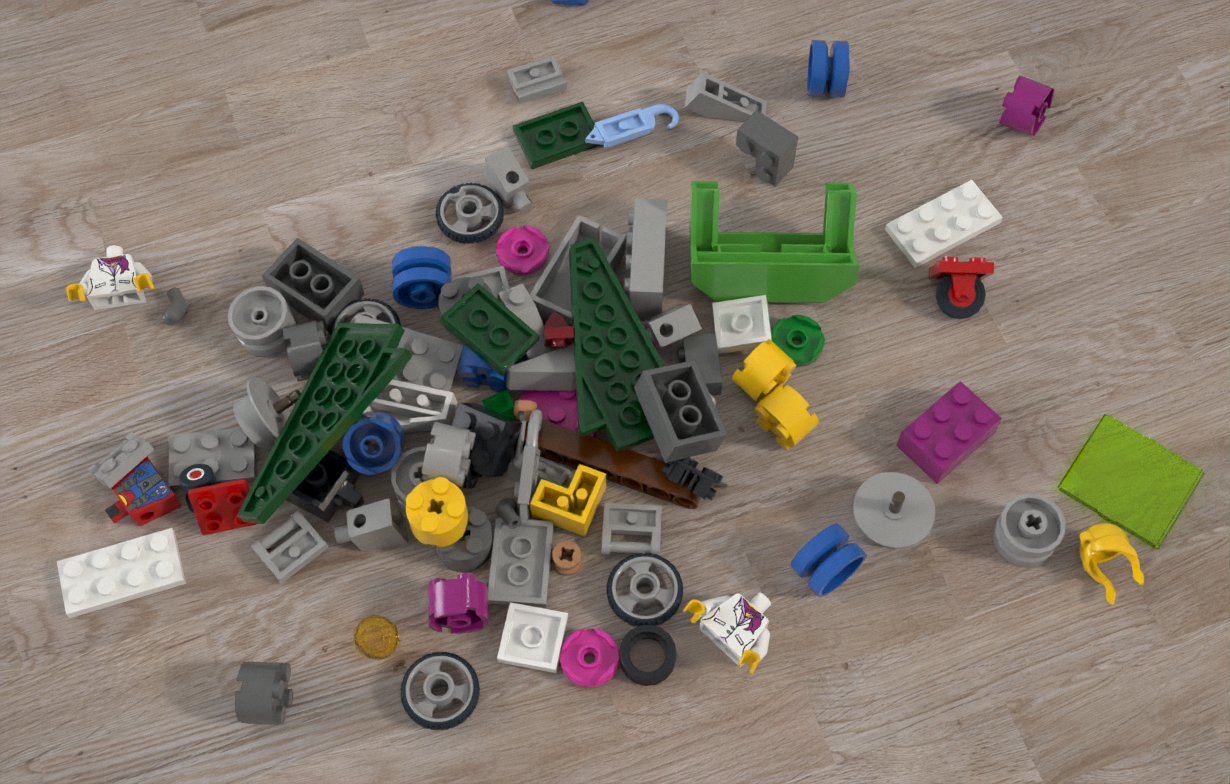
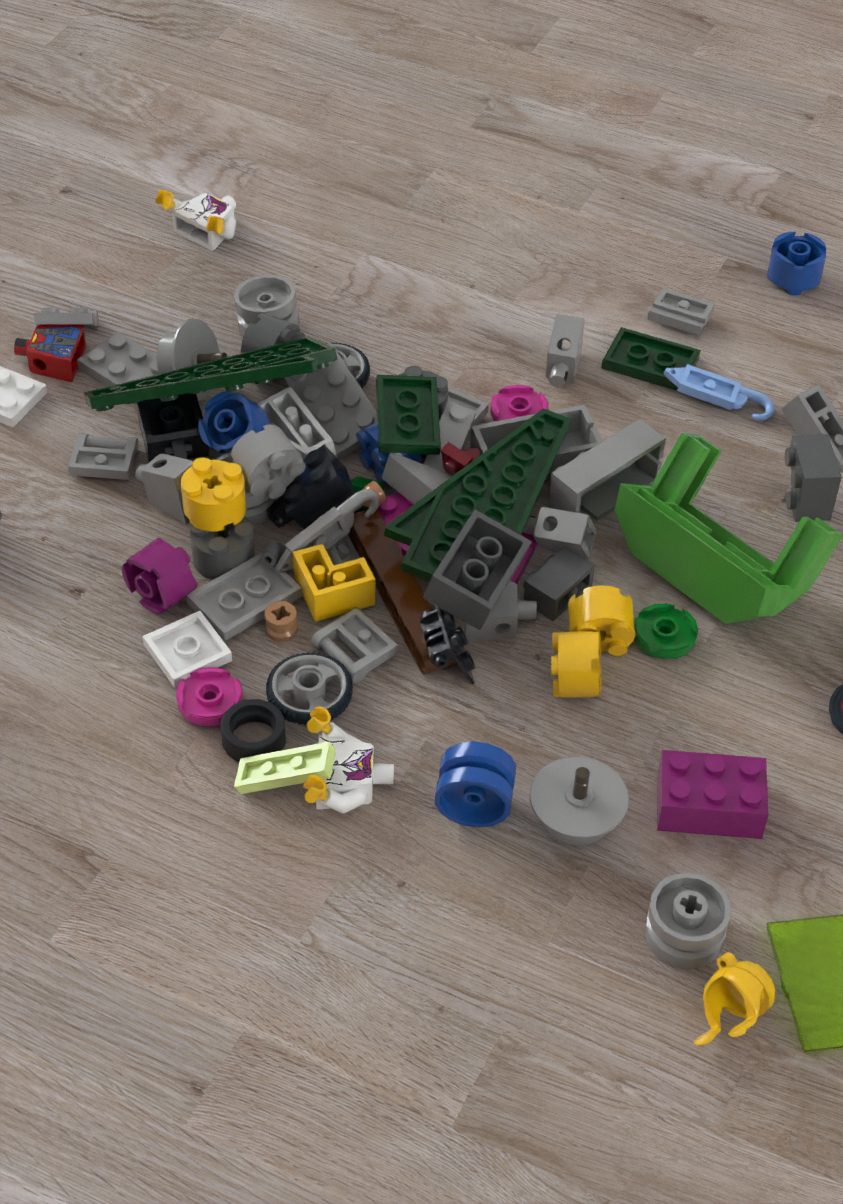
camera: 45 degrees right, 15 degrees down
(176, 309) = (224, 266): dark grey arm -> none
(213, 504) = (84, 374): red plate -> none
(313, 283) = (332, 308): dark grey brick -> none
(376, 637) = (80, 552): clear yellow hair -> none
(419, 276) = (412, 347): blue wheel -> none
(430, 666) = (77, 623): light grey wheel -> none
(470, 222) = (509, 355): light grey wheel -> none
(707, 662) = (284, 767): none -> yellowish green plate
(741, 323) = (634, 576): white plate -> none

